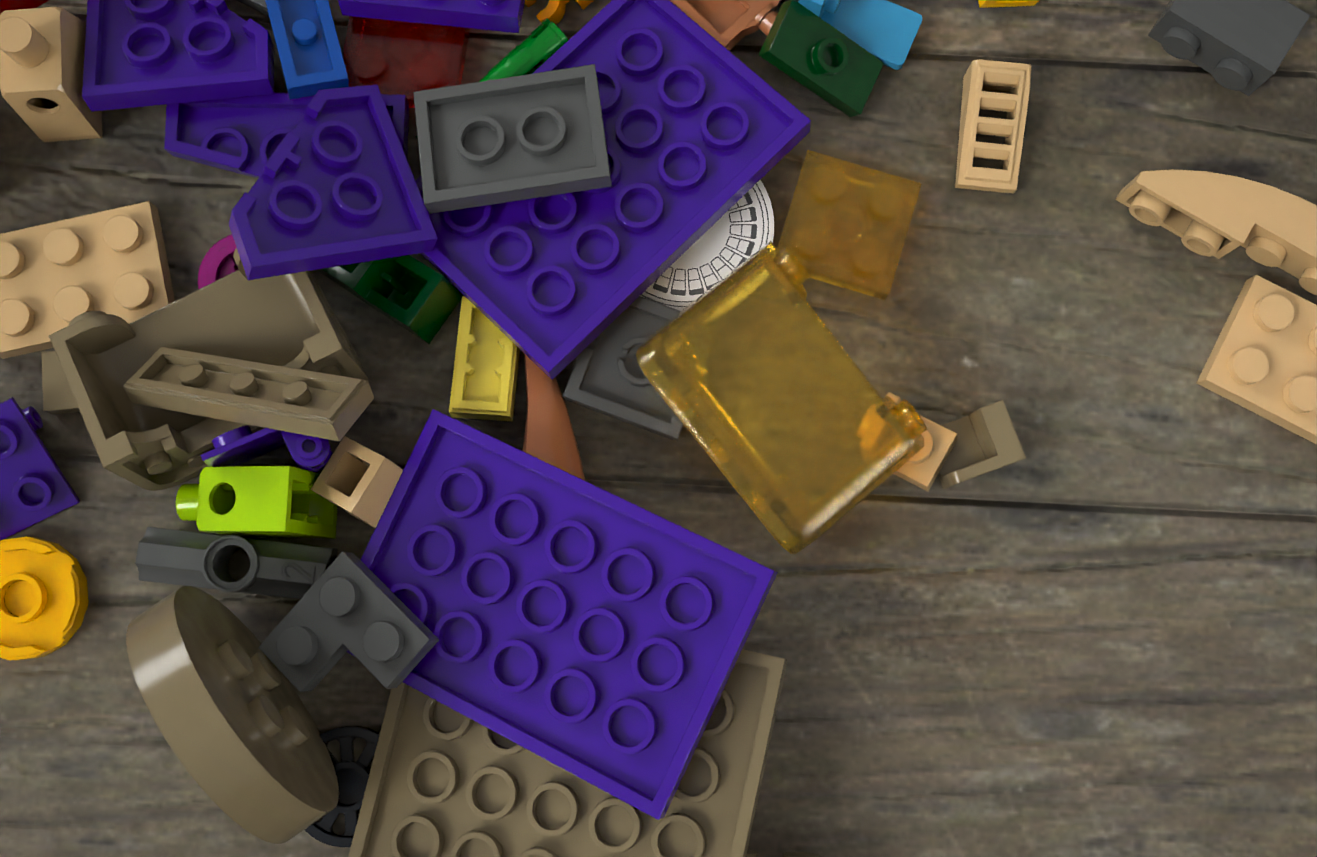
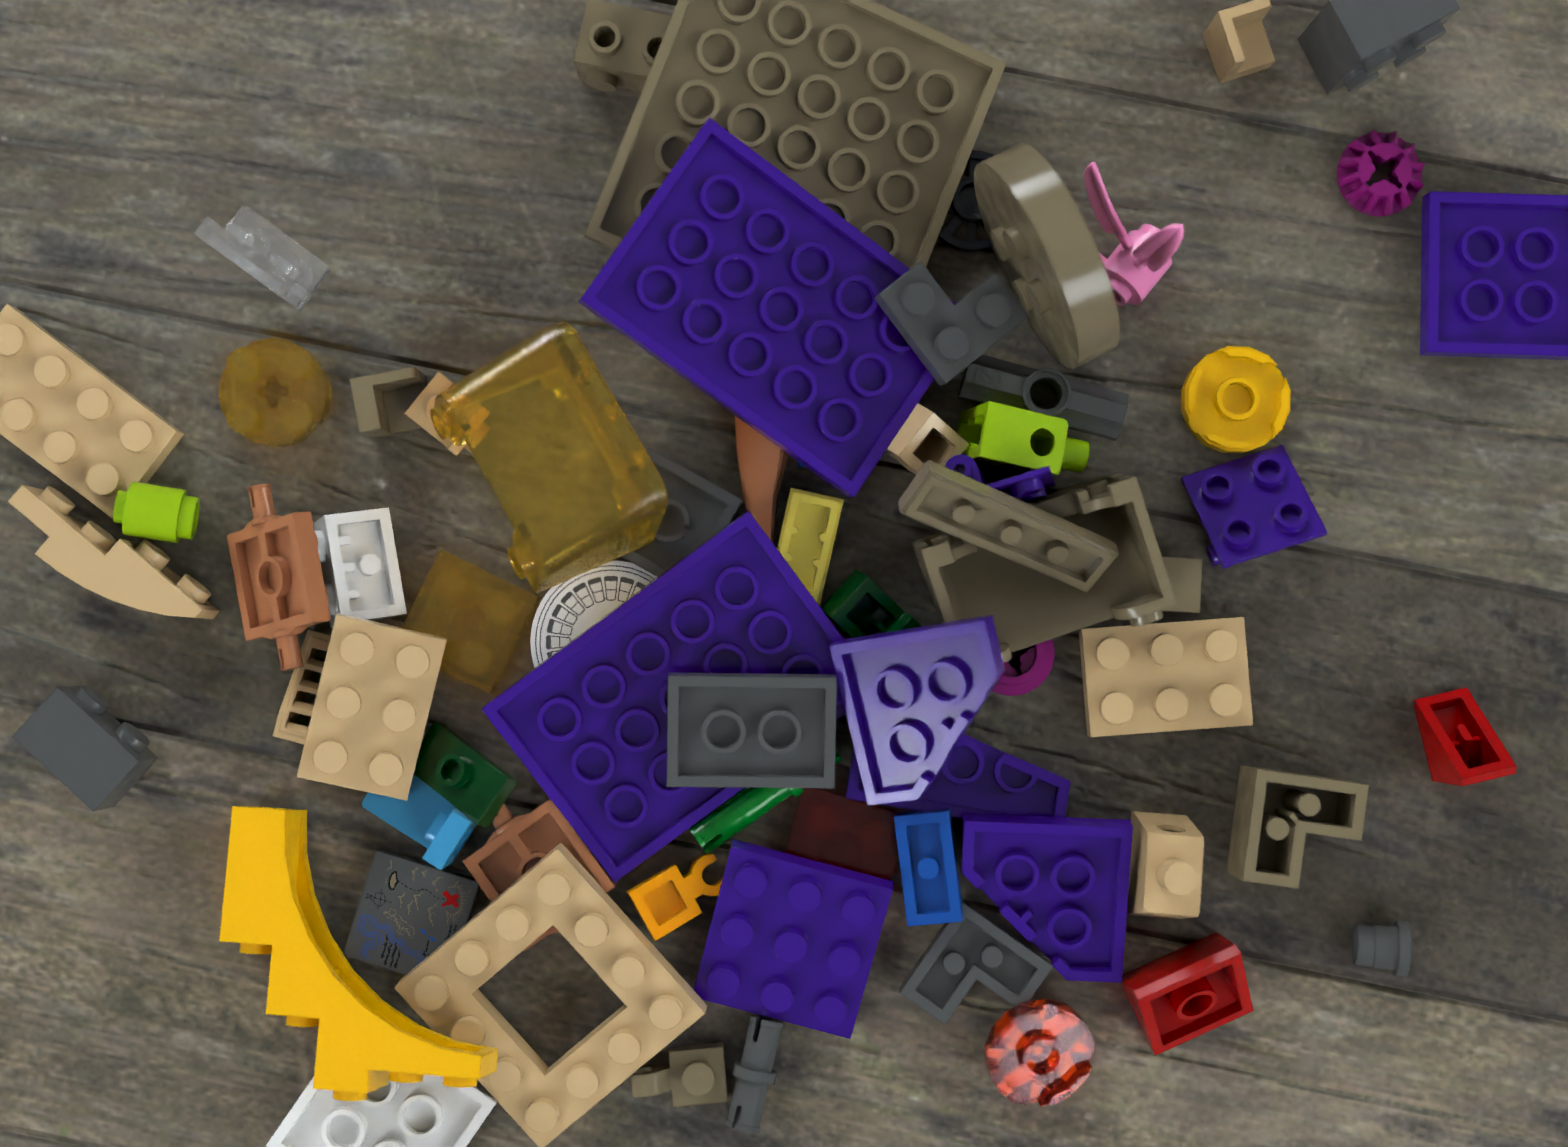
camera: 170 degrees left, 5 degrees up
(135, 753) = (1142, 253): none -> bright pink plant
(930, 109) = (371, 707): none -> tan plate
(975, 260) = (360, 564): none -> white bracket
(1059, 231) = (278, 576): none -> nougat plate
(1141, 434) = (251, 370): none -> clear yellow plate
(1150, 589) = (267, 255): none -> clear bracket
(1208, 284) = (156, 512): none -> lime brick

